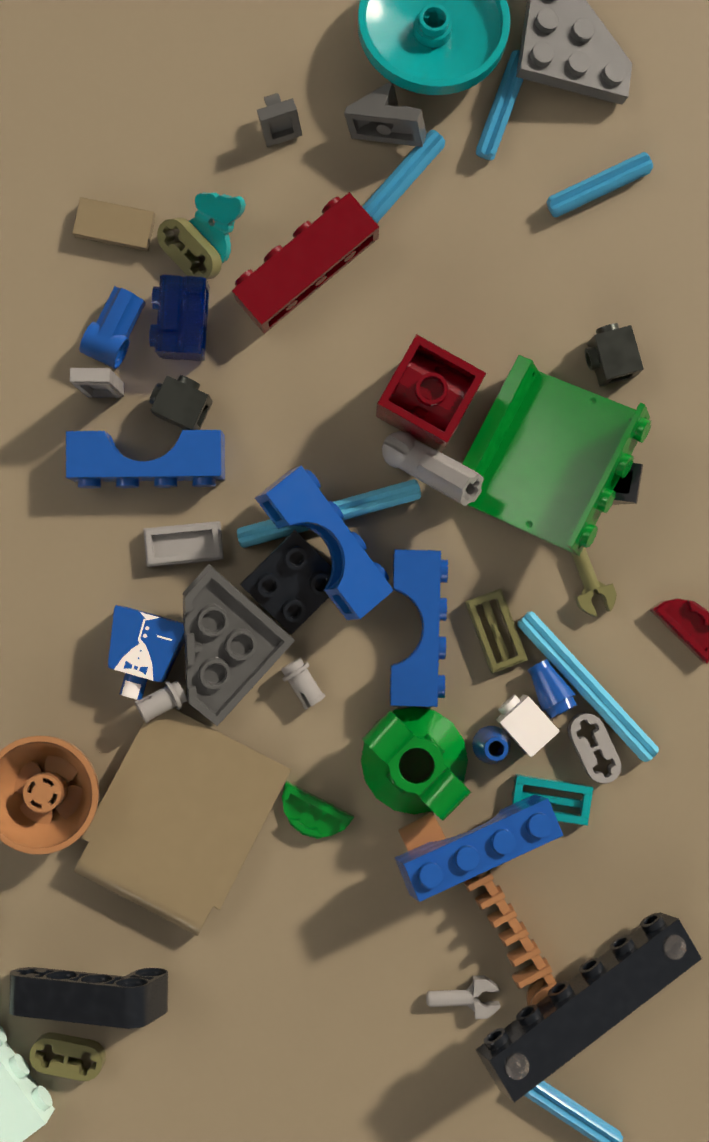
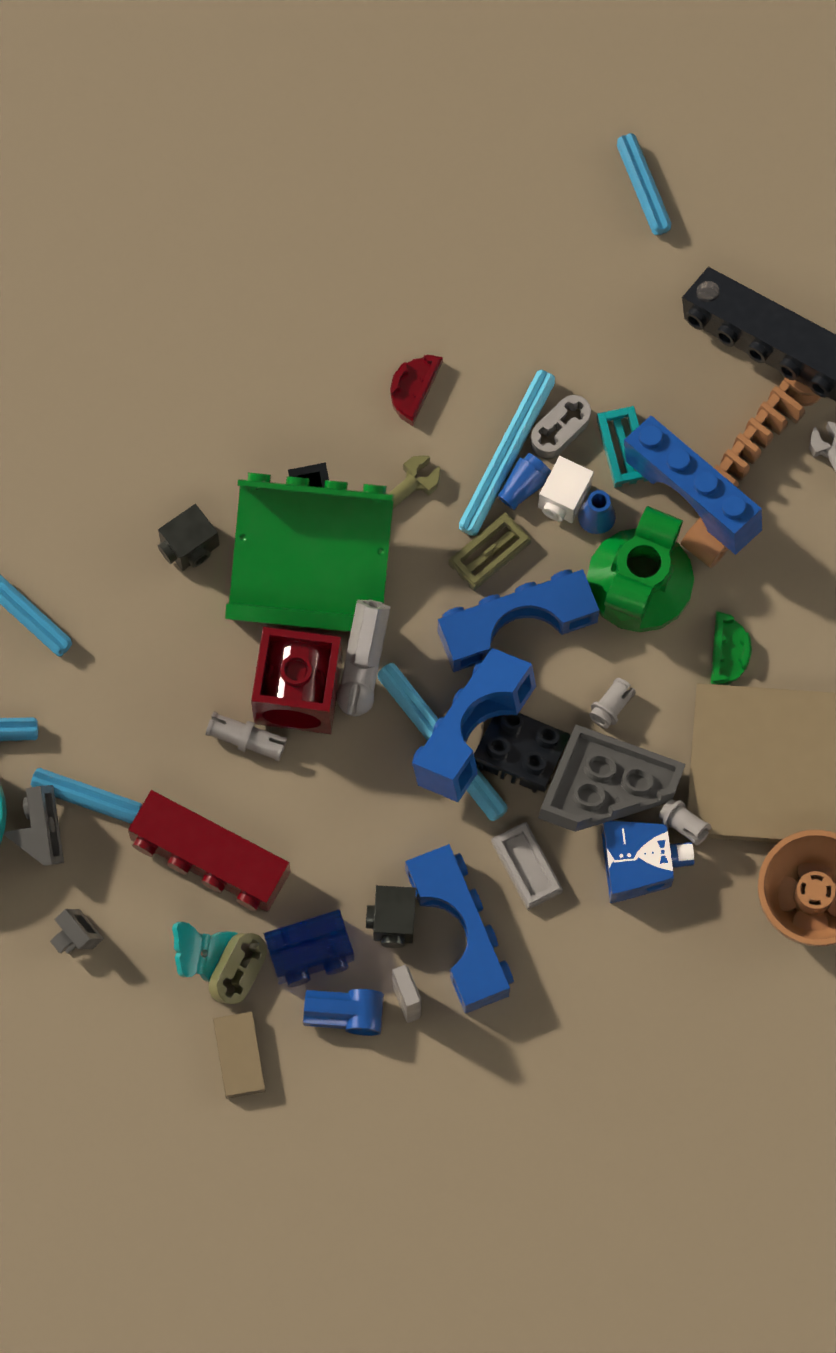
camera: 115 degrees left, 15 degrees down
(402, 337) = (246, 736): none -> light grey pin

